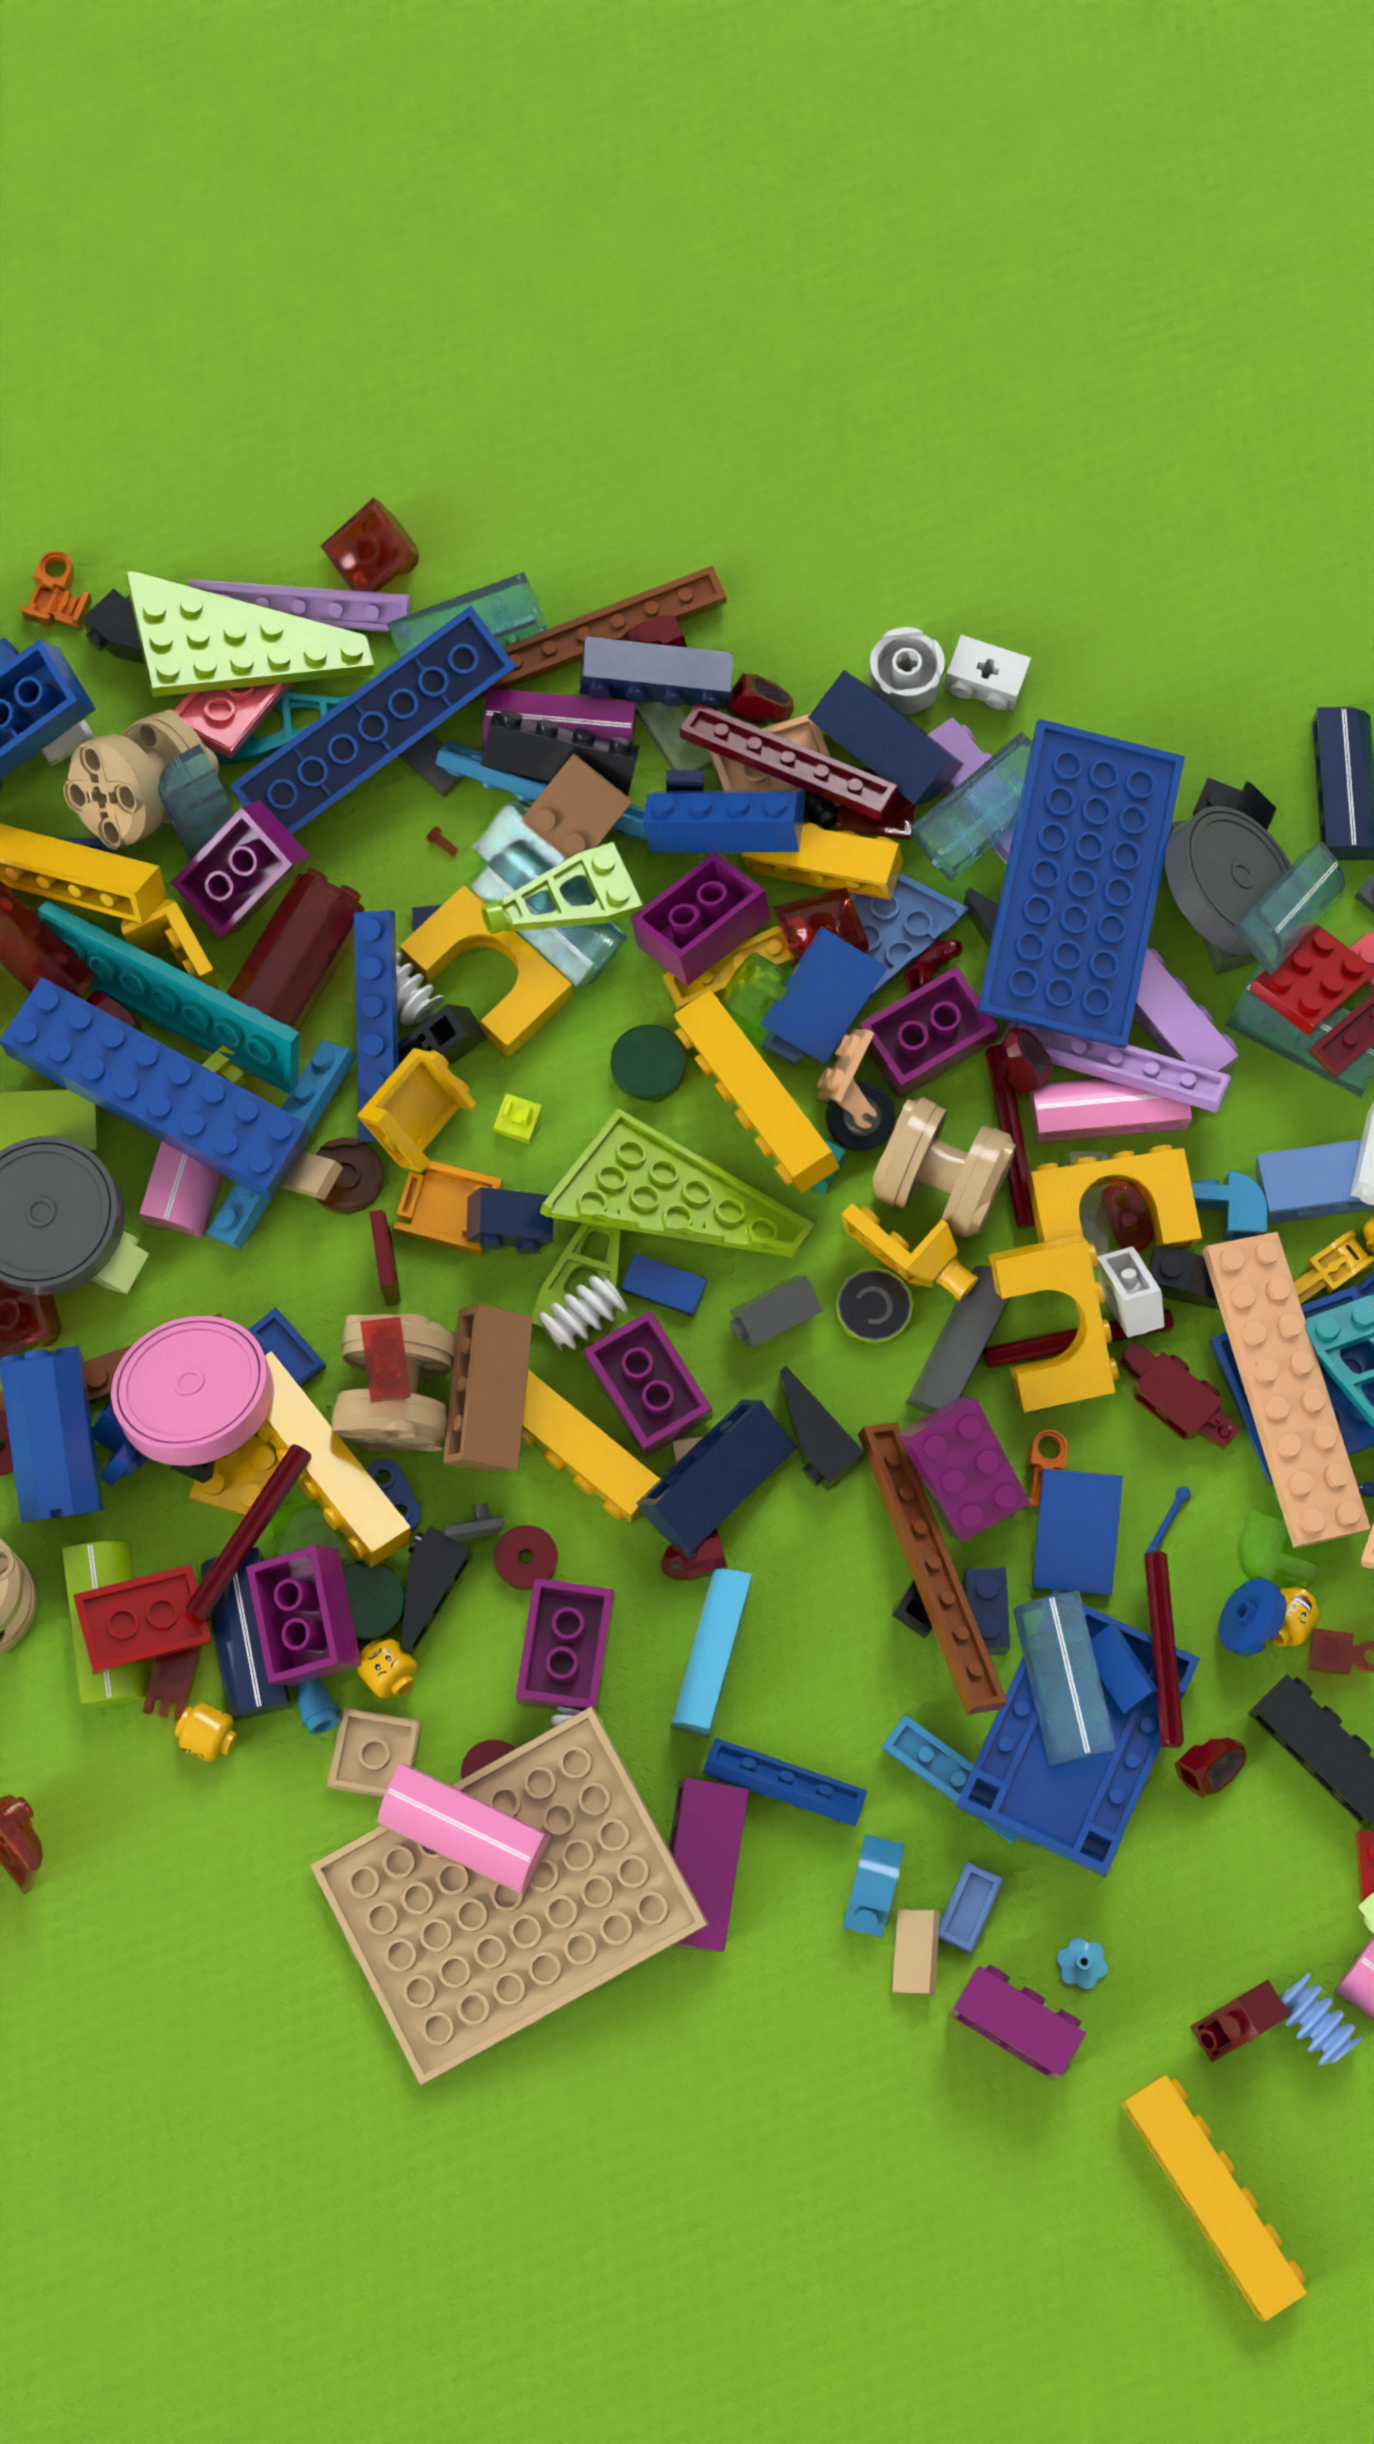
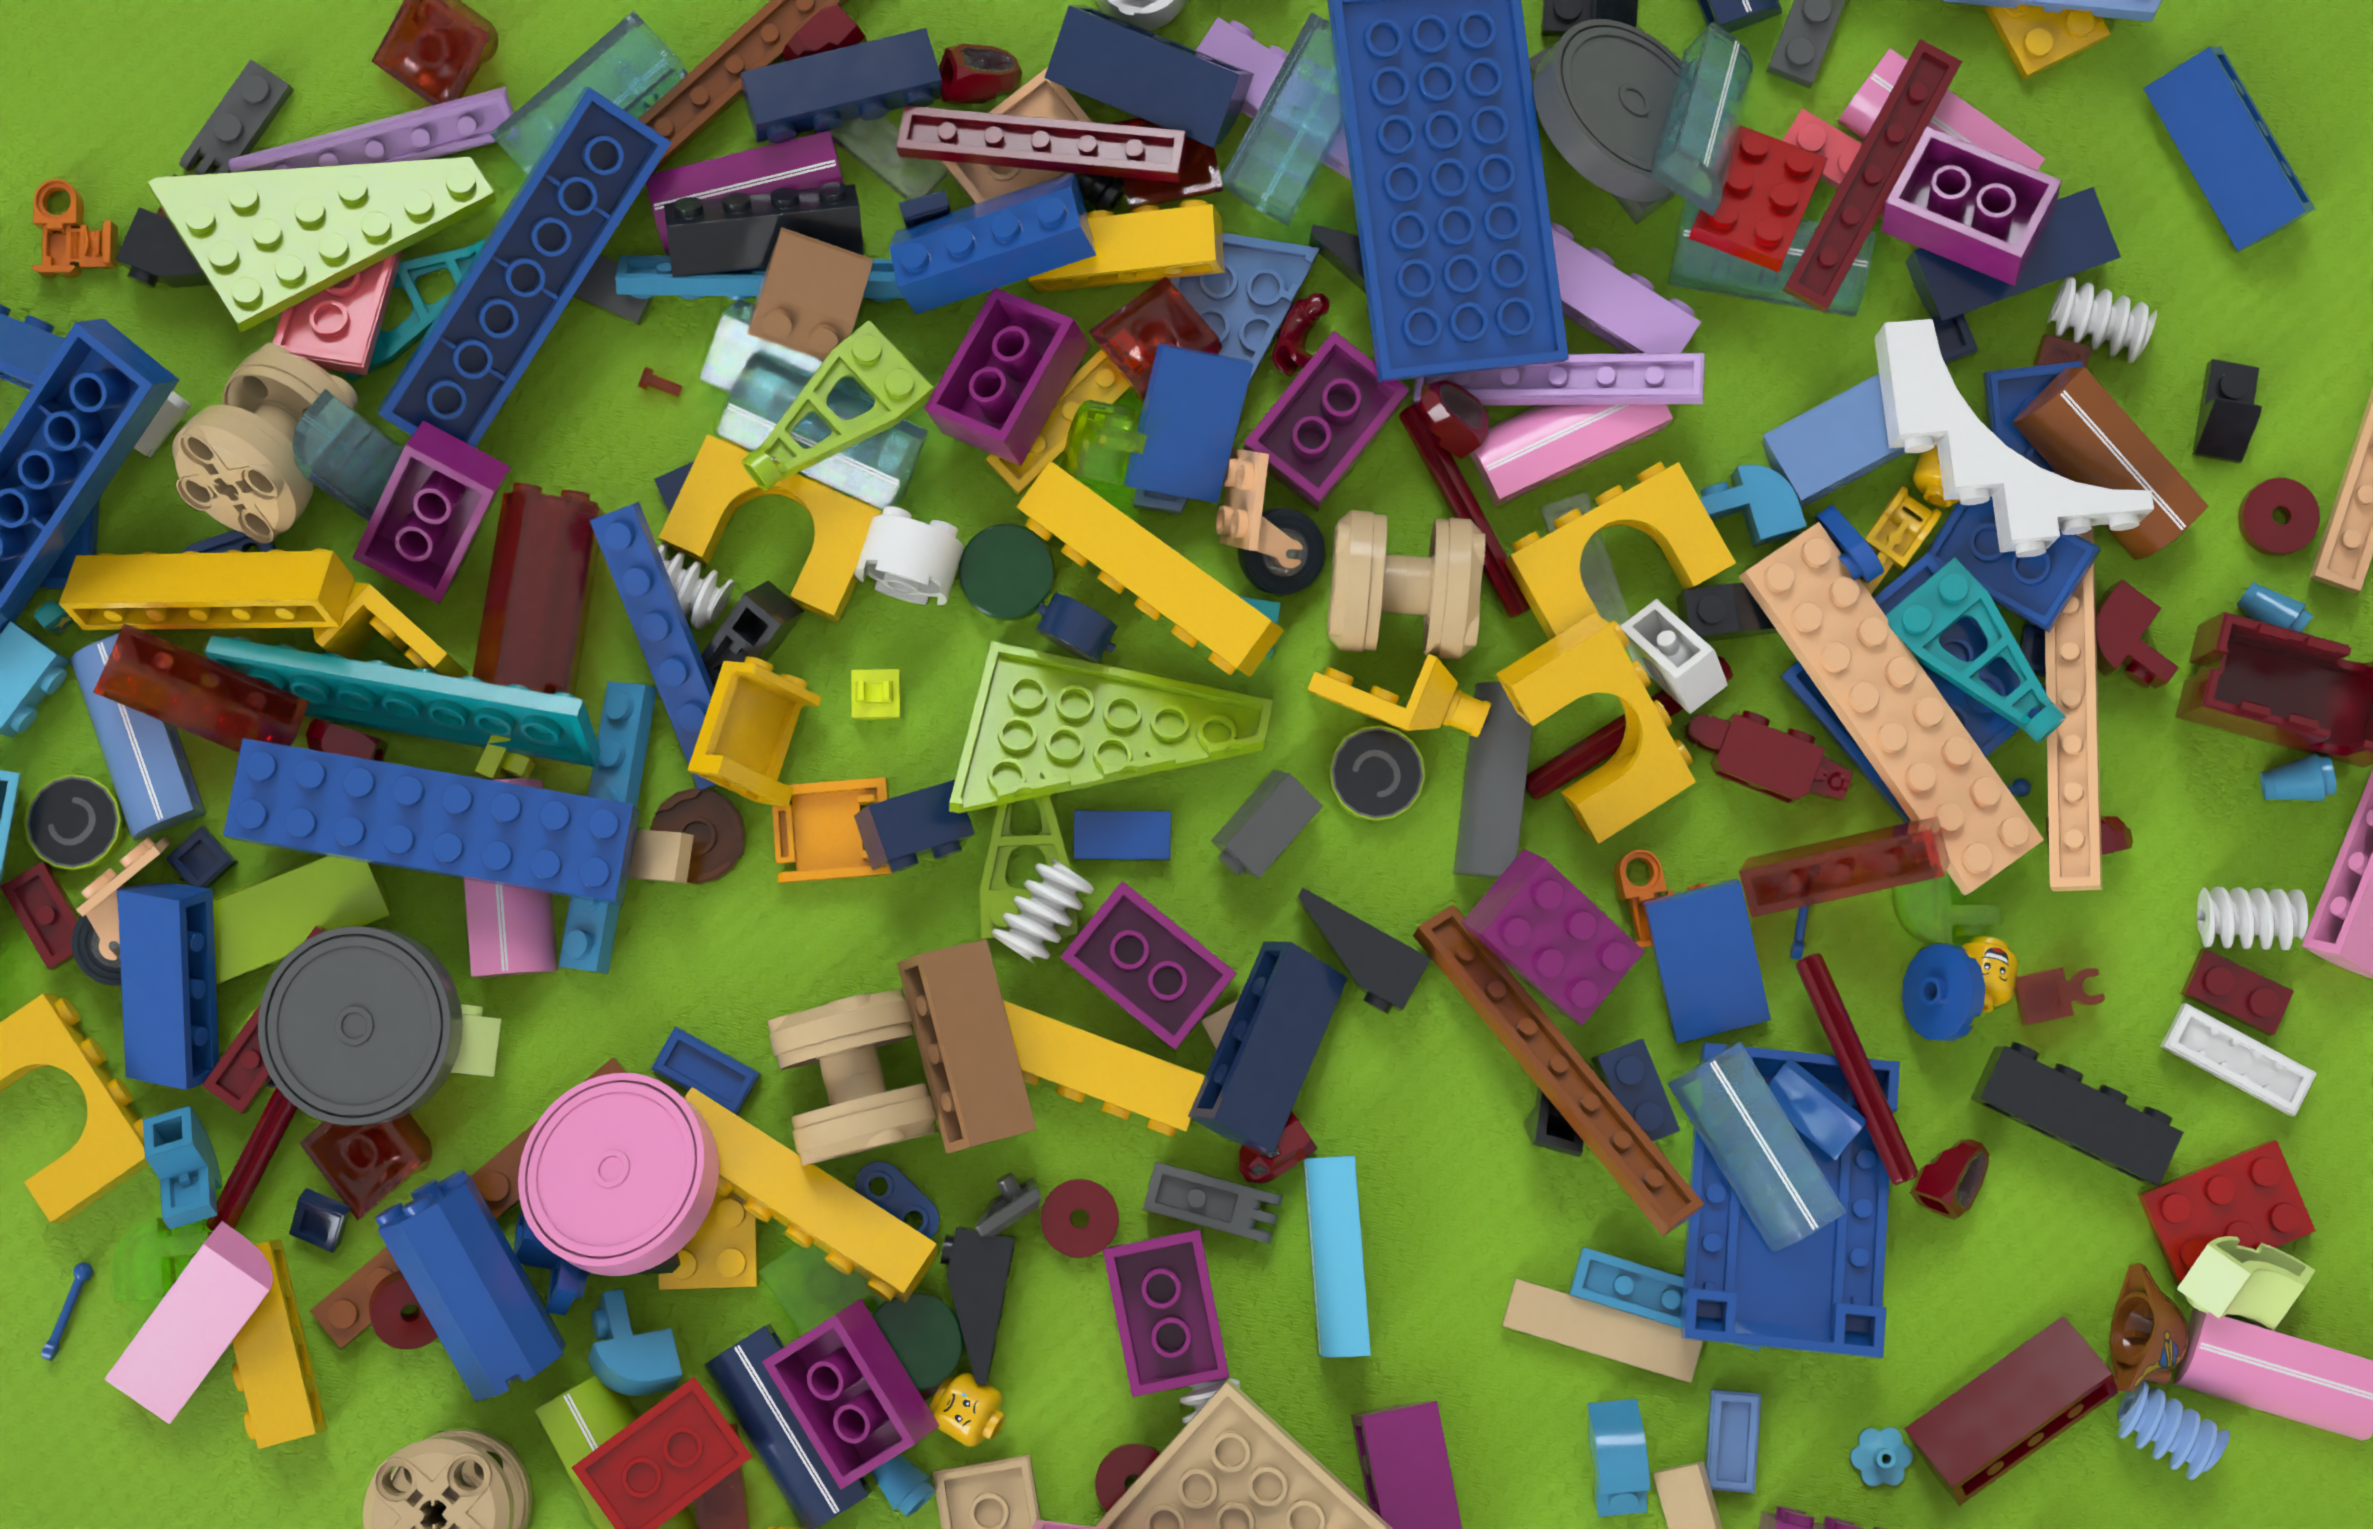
camera: 20 degrees left, 10 degrees up
(145, 1538) = (628, 1361): none -> dark azure brick
(208, 554) = (237, 120): none -> dark grey hinge
(248, 1532) = (749, 1318): dark red axle -> none
(385, 1257) = (784, 926): dark red tile -> none
(385, 1359) = (837, 1068): clear red plate -> none
(580, 1024) = (910, 557): none -> white brick
(630, 1579) = (1210, 1201): none -> dark grey hinge
(685, 1118) = (1076, 628): none -> dark blue piece
(785, 1782) = (1474, 1375): blue plate -> none
(897, 1785) = (1601, 1330): none -> tan tile
(1127, 1213) = (1637, 563): clear red plate -> none
(1197, 1961) = (2012, 1410): none -> dark red brick
(1207, 1492) = (1845, 867): none -> clear red brick
(1240, 2020) = (2085, 1463): dark red slope -> none
(1297, 1263) = (1855, 551): none -> blue plate
(1325, 1938) = (2146, 1332): none -> dark orange hat

